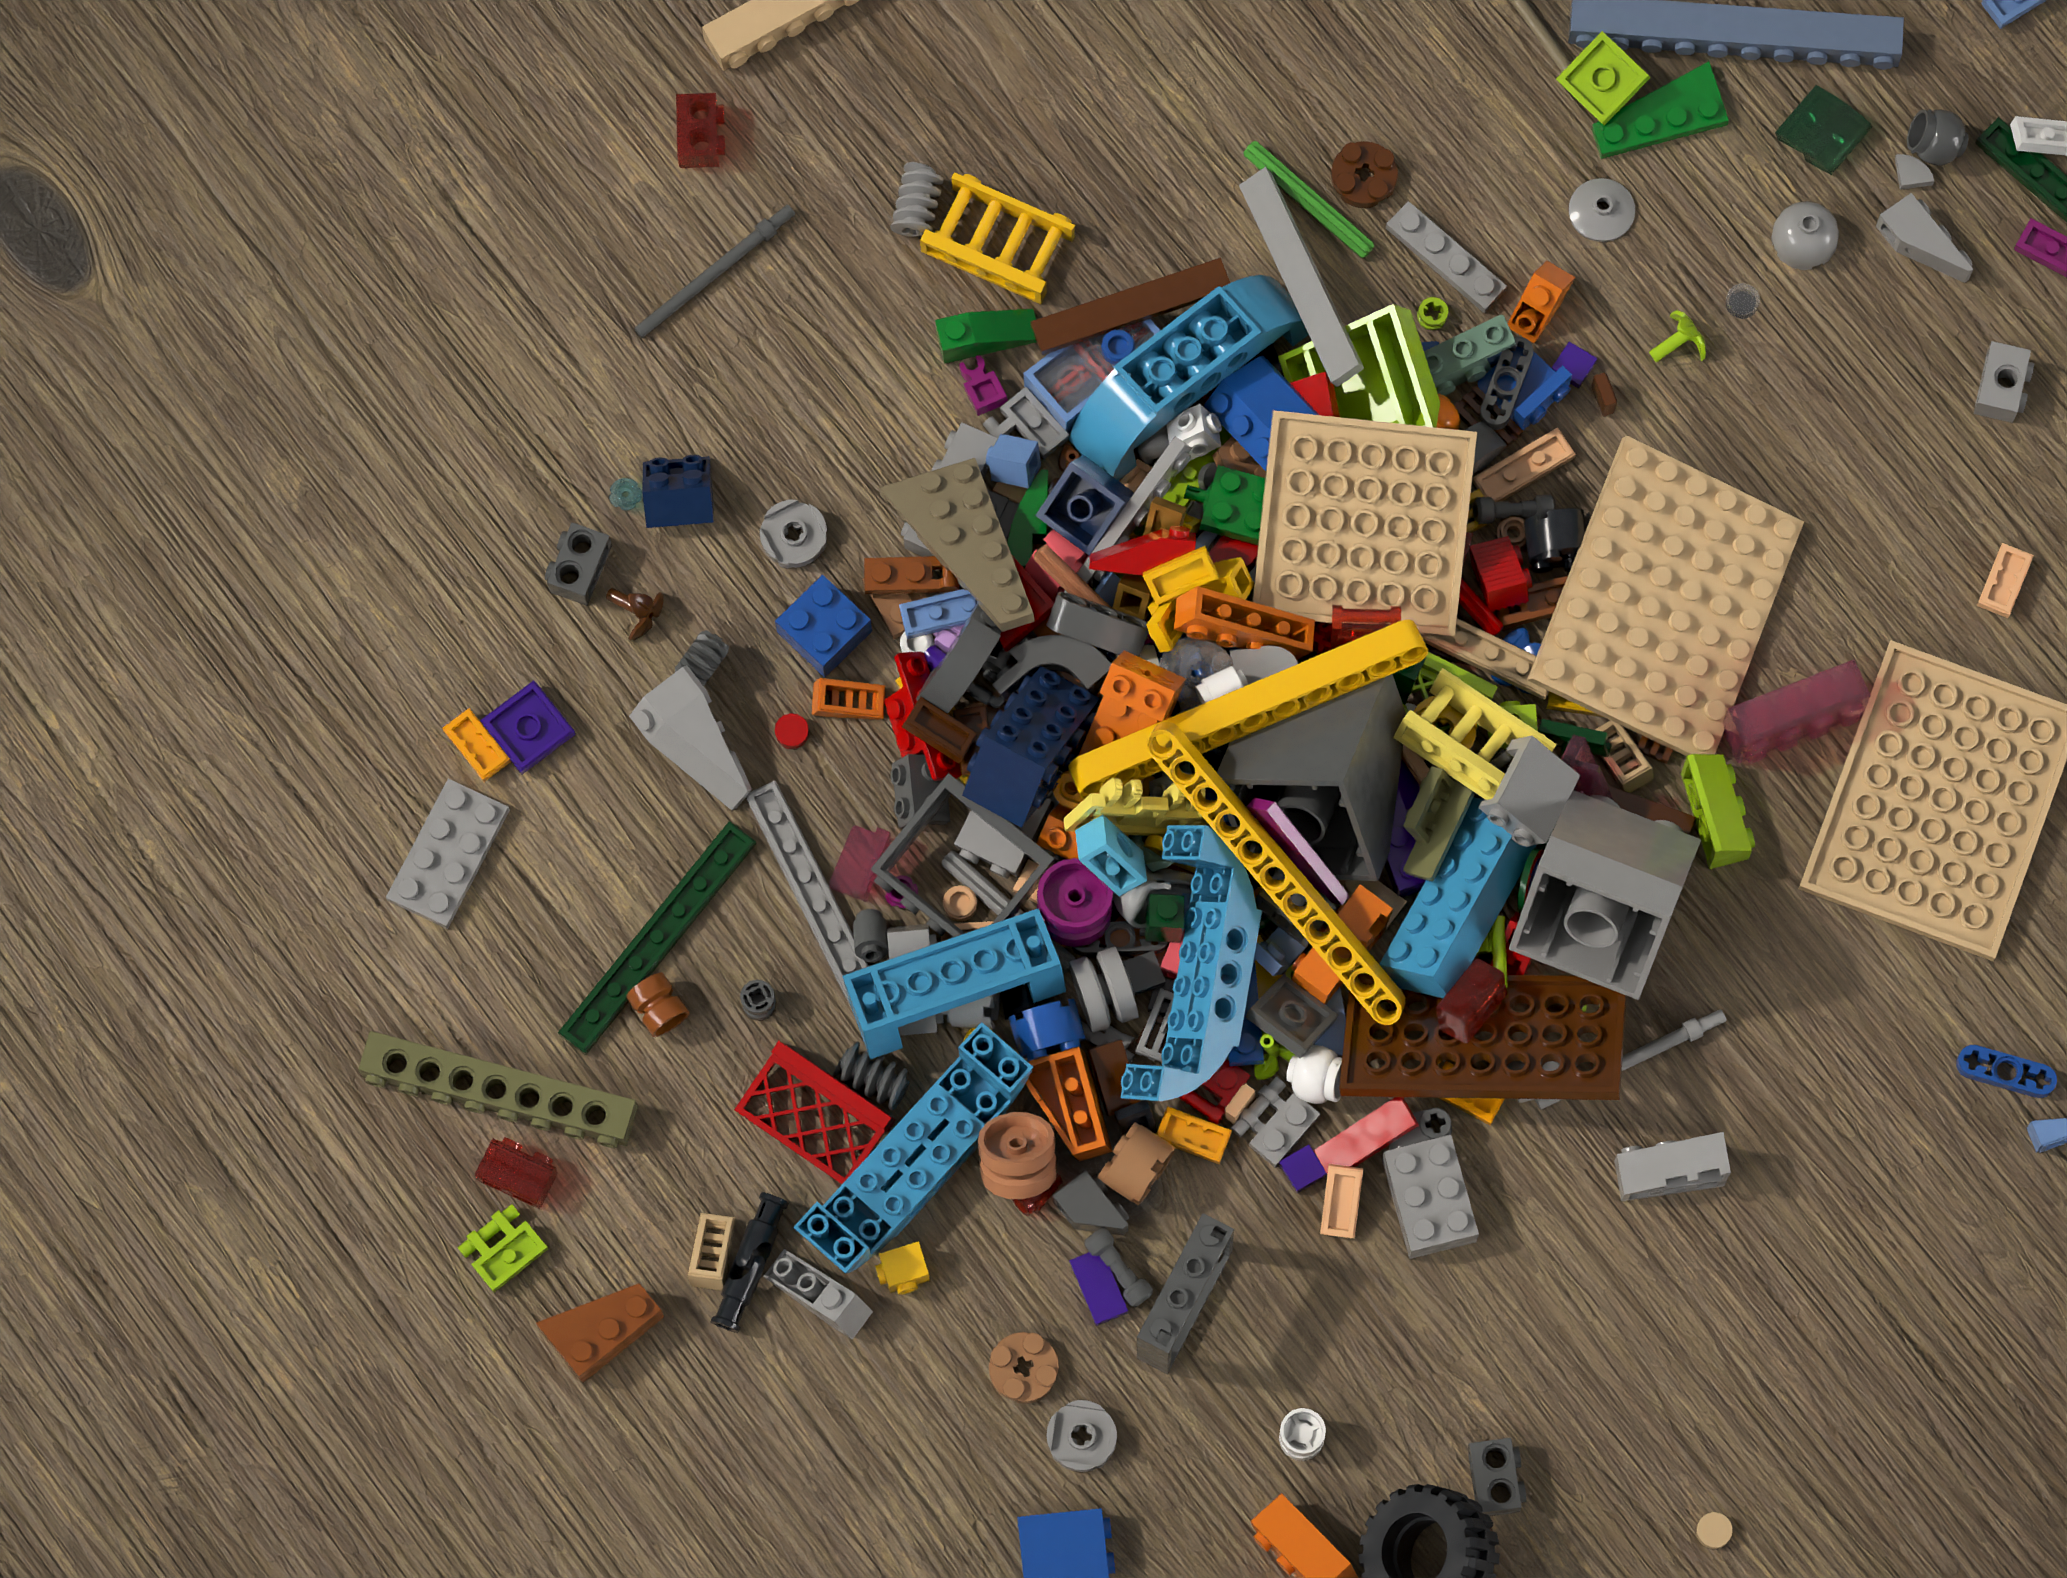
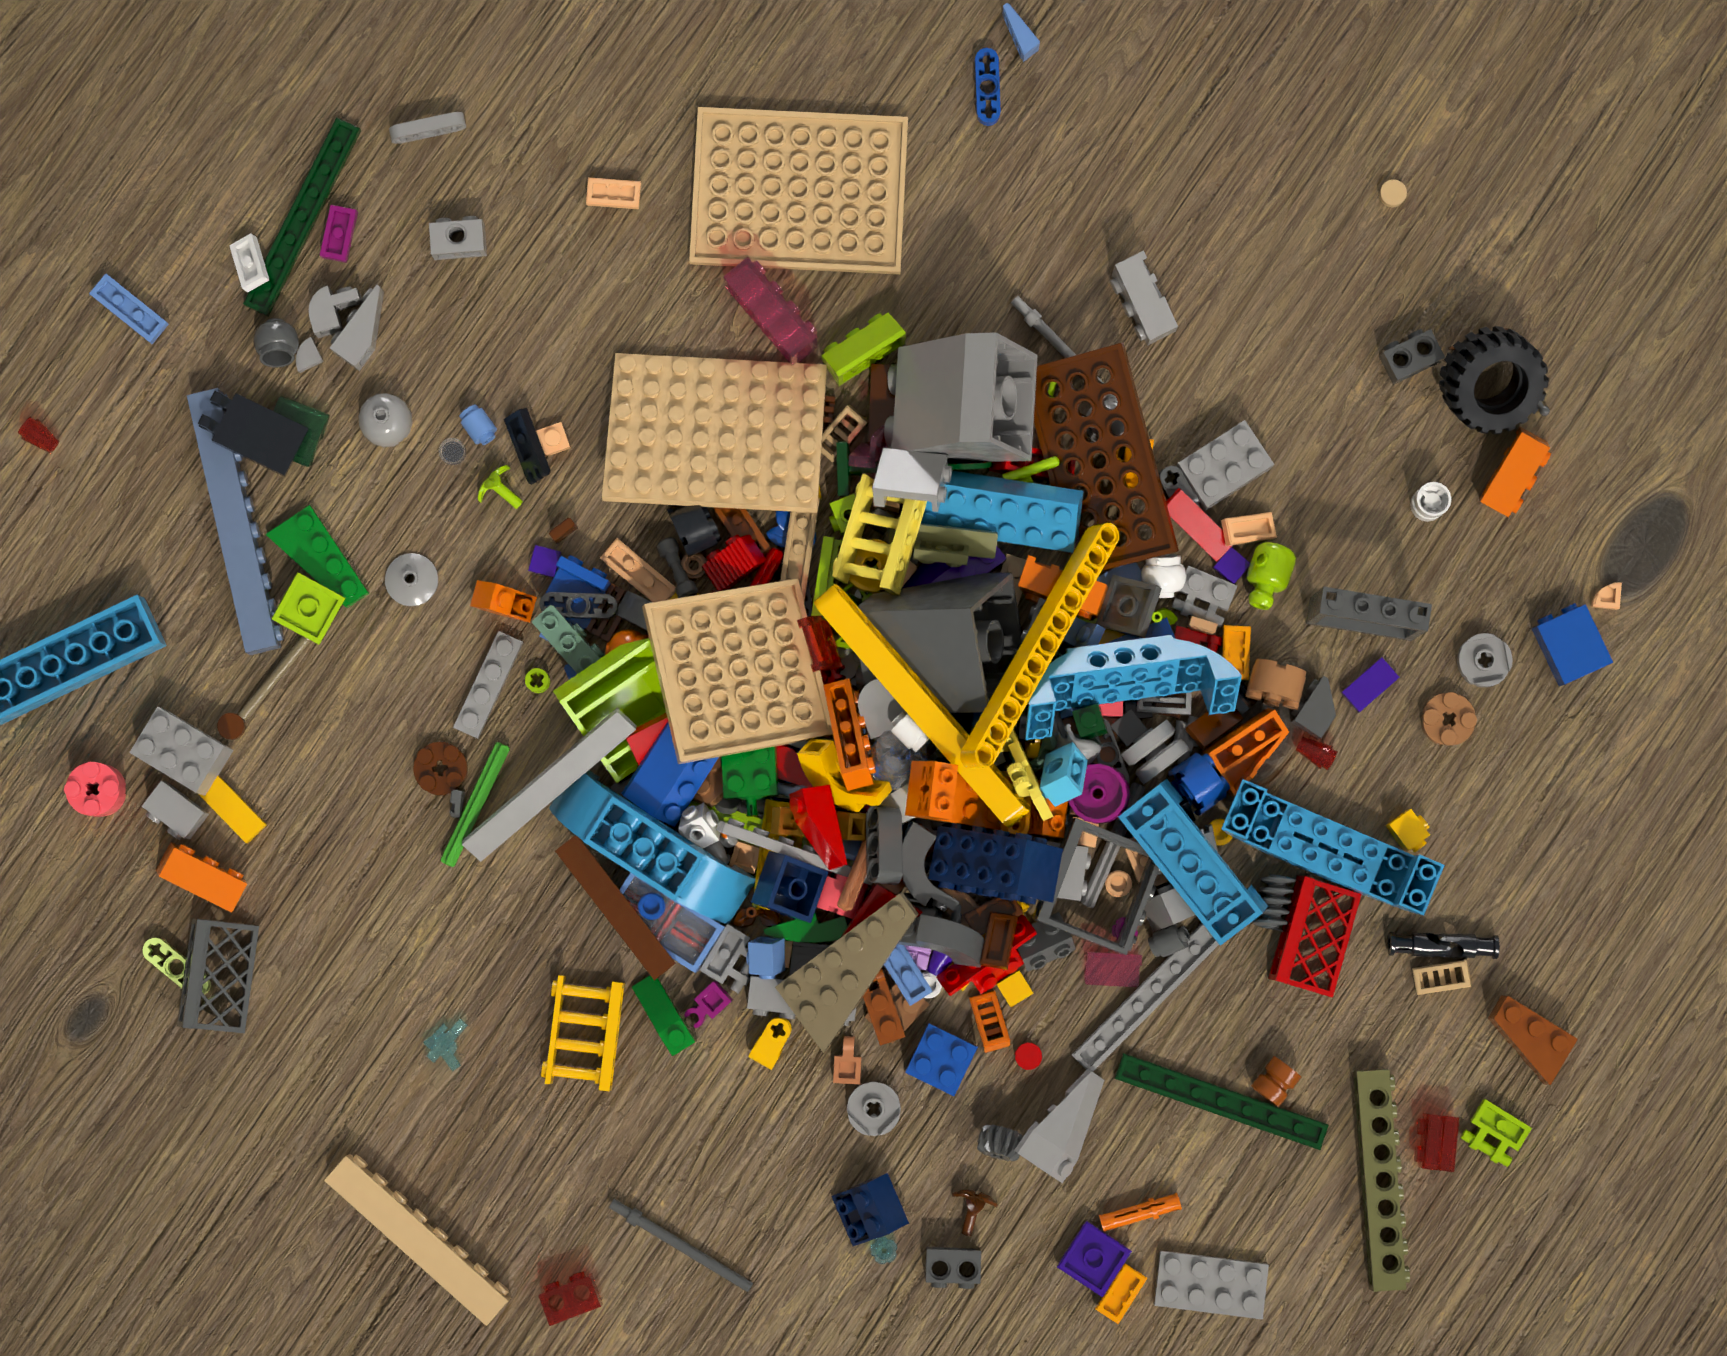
camera: 110 degrees left, 10 degrees up
(562, 793) = (1140, 1212): none -> orange pin
(757, 1006) = (1240, 1007): dark grey wheel -> none
(819, 1293) = (1450, 887): light grey slope -> none
(854, 518) = (847, 1066): none -> nougat plate
(876, 741) = (1014, 988): none -> yellow tile
(910, 439) = (769, 1046): none -> yellow piece
(915, 200) = (574, 1105): light grey piece -> none
(1017, 1155) = (1302, 772): nougat wheel -> none
(1039, 82) = (444, 1044): none -> clear light blue piece
(1101, 1245) = (1365, 656): dark grey piece -> none
(1180, 575) = (830, 792): yellow tile -> none
(1278, 1207) = (1269, 573): none -> lime piece
(1297, 849) = (1013, 636): magenta tile -> none
(1320, 180) = (457, 800): none -> dark grey tile
(1471, 1000) = (1079, 475): clear red brick -> none
(1720, 419) = (553, 439): none -> light nougat plate
(1721, 385) = (527, 446): none -> black hinge
(1764, 336) = (478, 425): none -> medium blue brick
(1833, 79) = (255, 432): none -> black tile
(1962, 205) = (325, 307): none -> light grey brick

